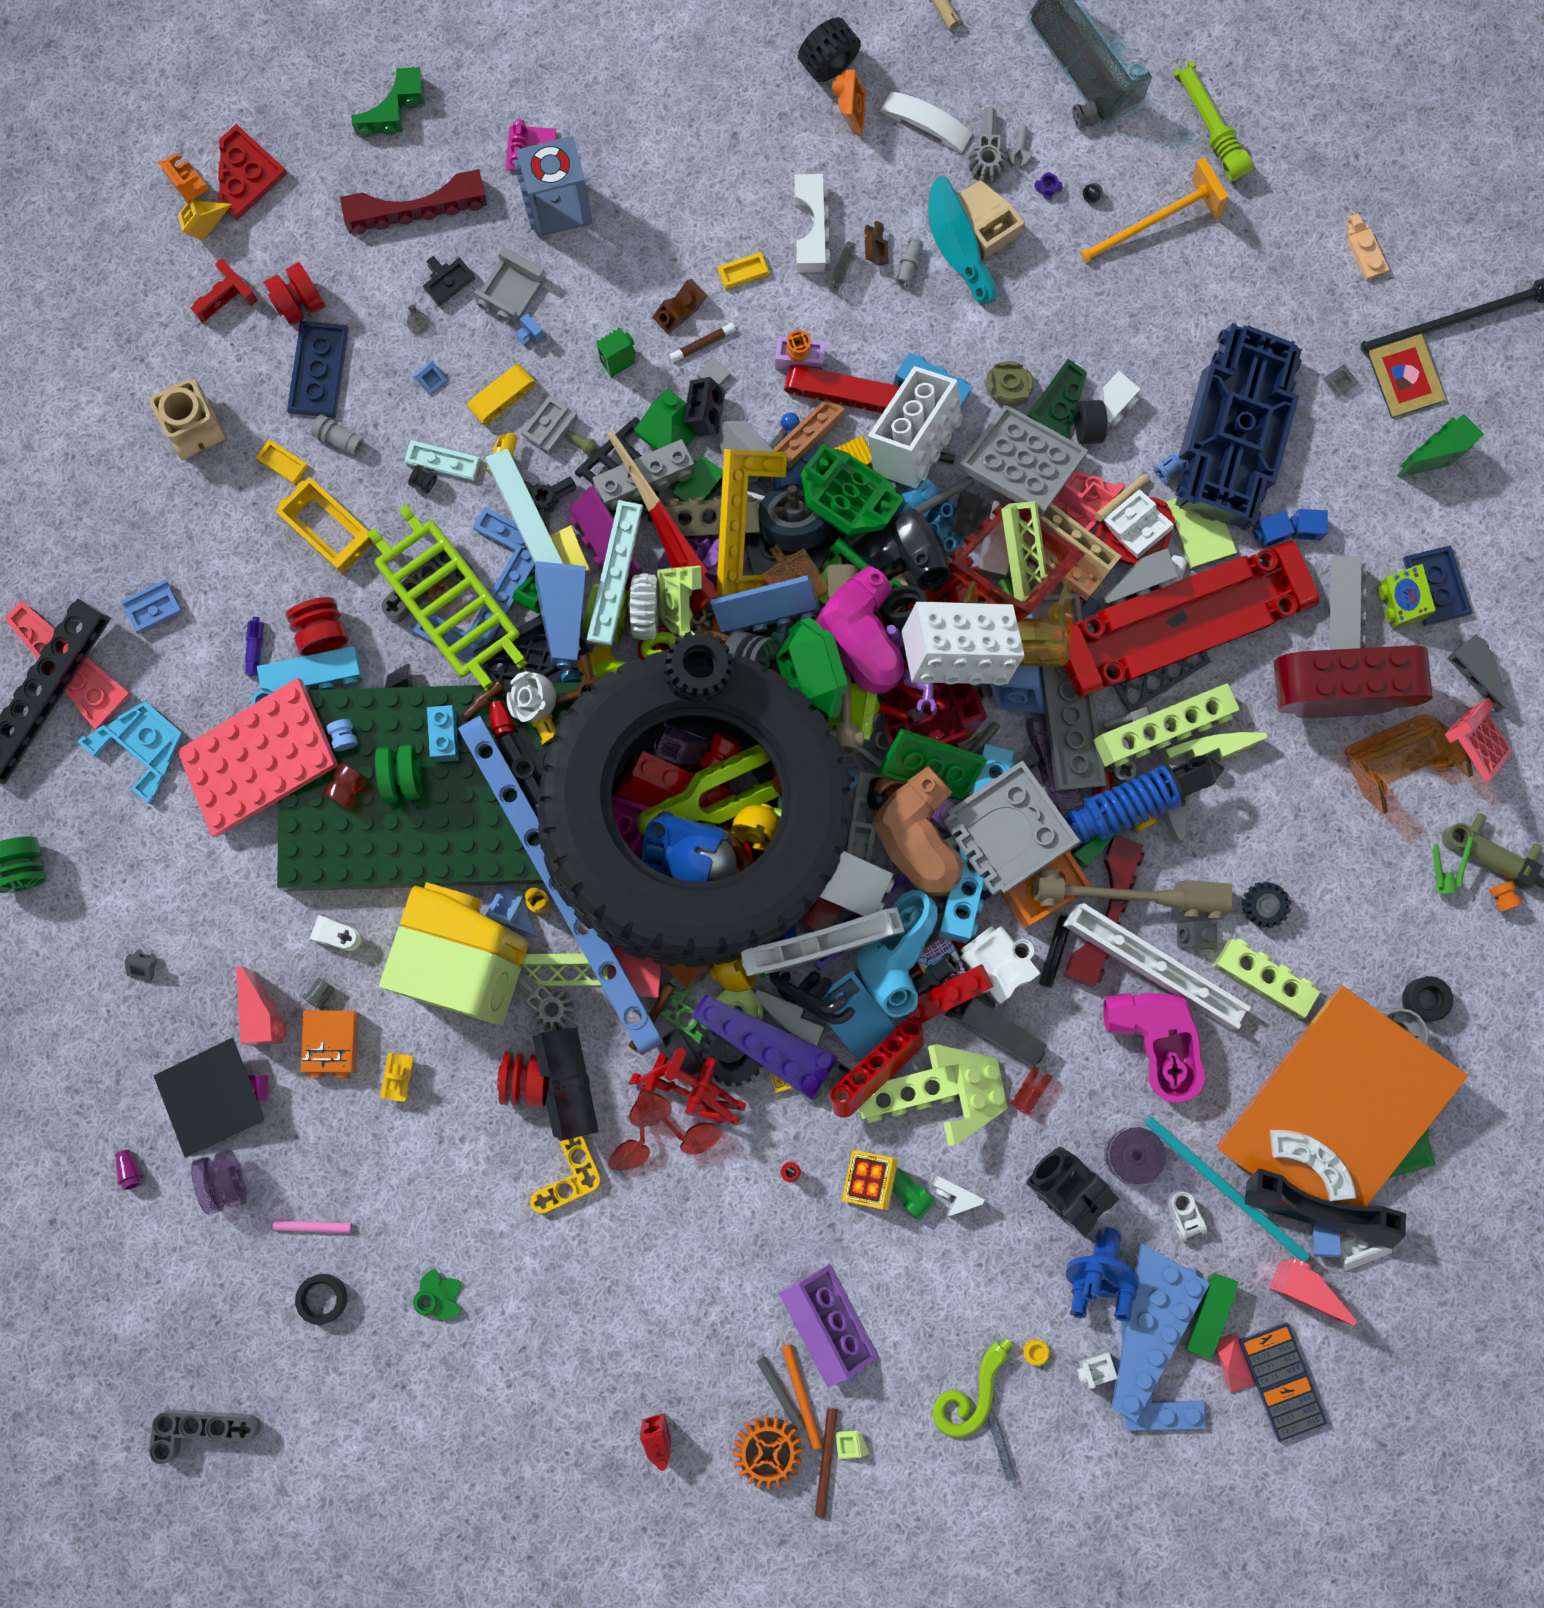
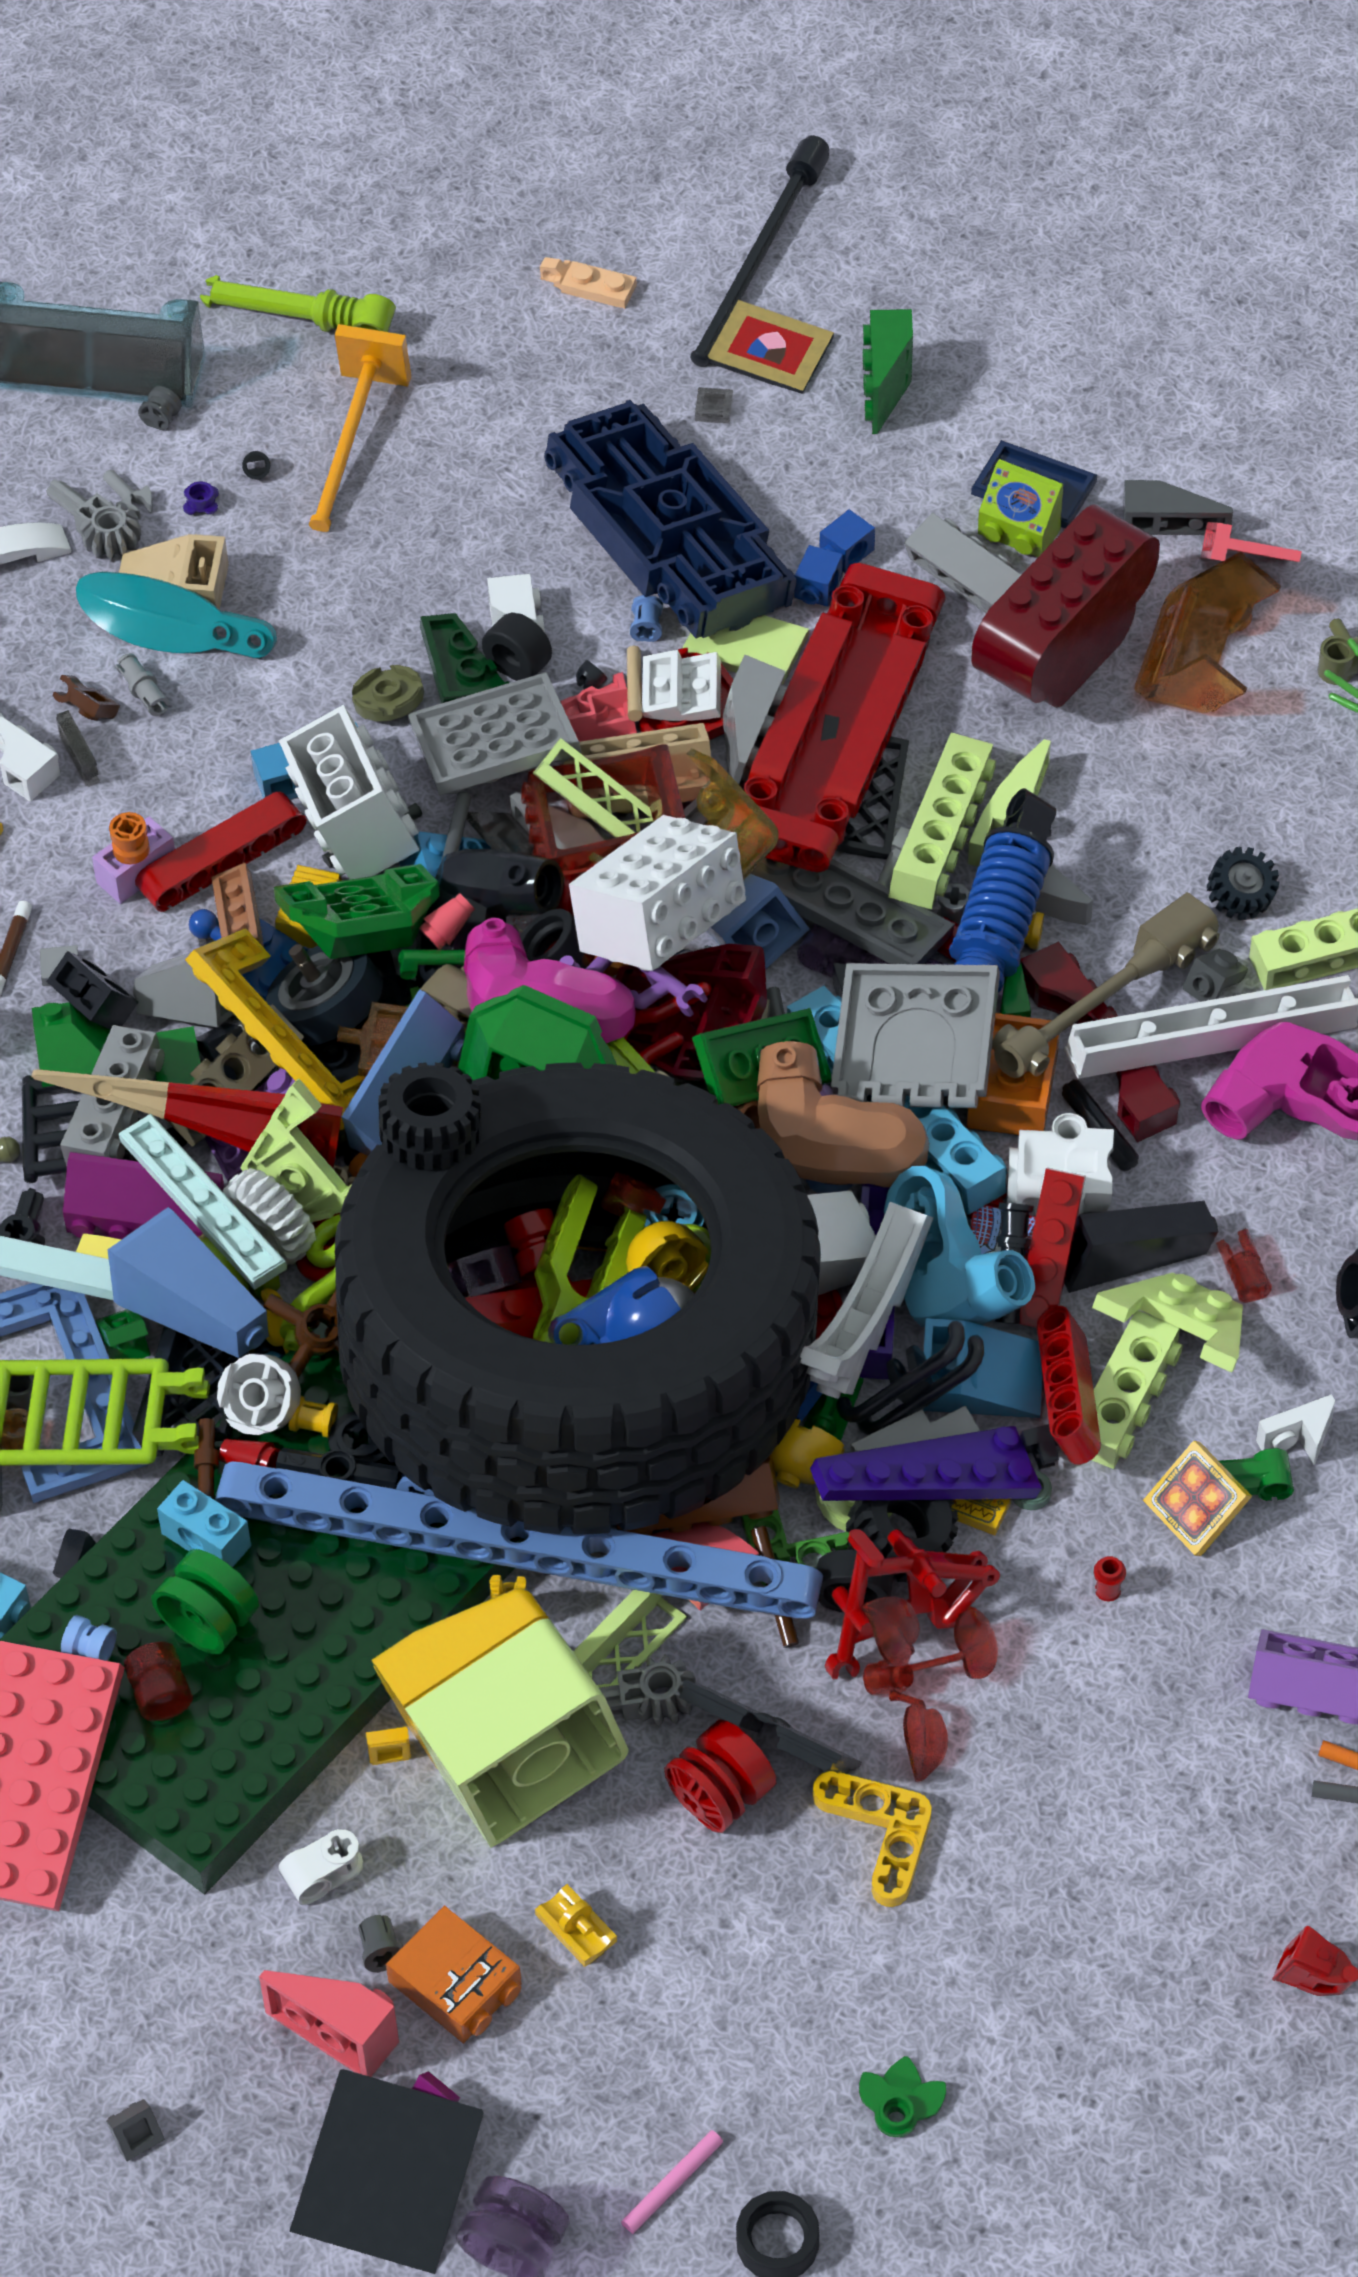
camera: 45 degrees left, 25 degrees down
(871, 546) = (446, 921): none -> coral cone
(1110, 471) = (590, 676): none -> black hinge

